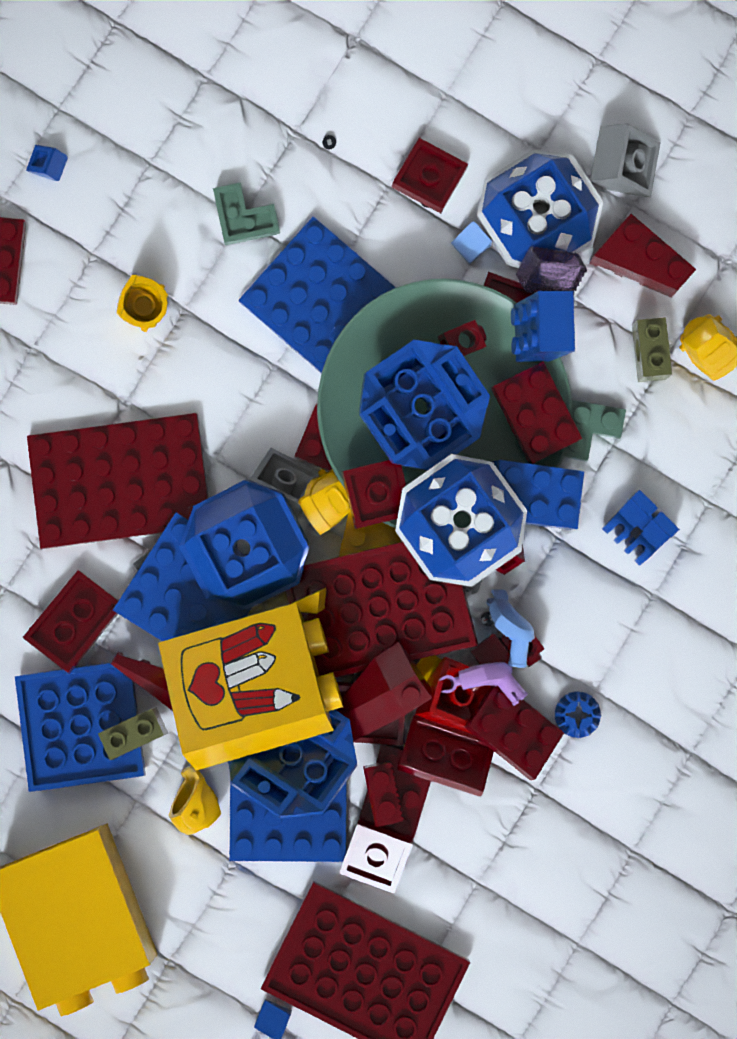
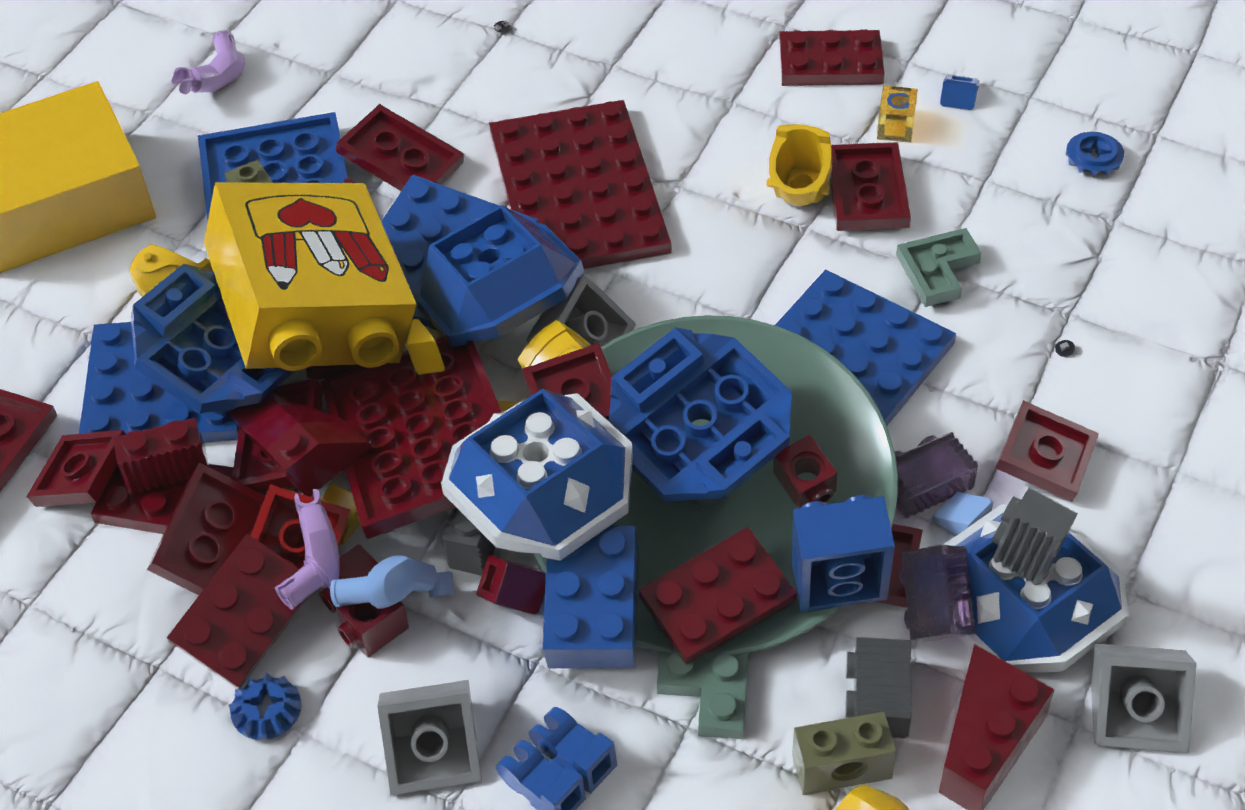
camera: 85 degrees right, 35 degrees down
(75, 217) = (897, 113): none -> clear yellow brick
(130, 63) = (1108, 150): none -> blue gear
(154, 252) = (868, 187): none -> dark red plate
(439, 255) = (933, 473): none -> clear purple brick
(543, 200) = (1032, 534): none -> dark grey brick
(604, 319) = (881, 681): none -> dark grey brick
(613, 606) = (429, 737): none -> light grey slope

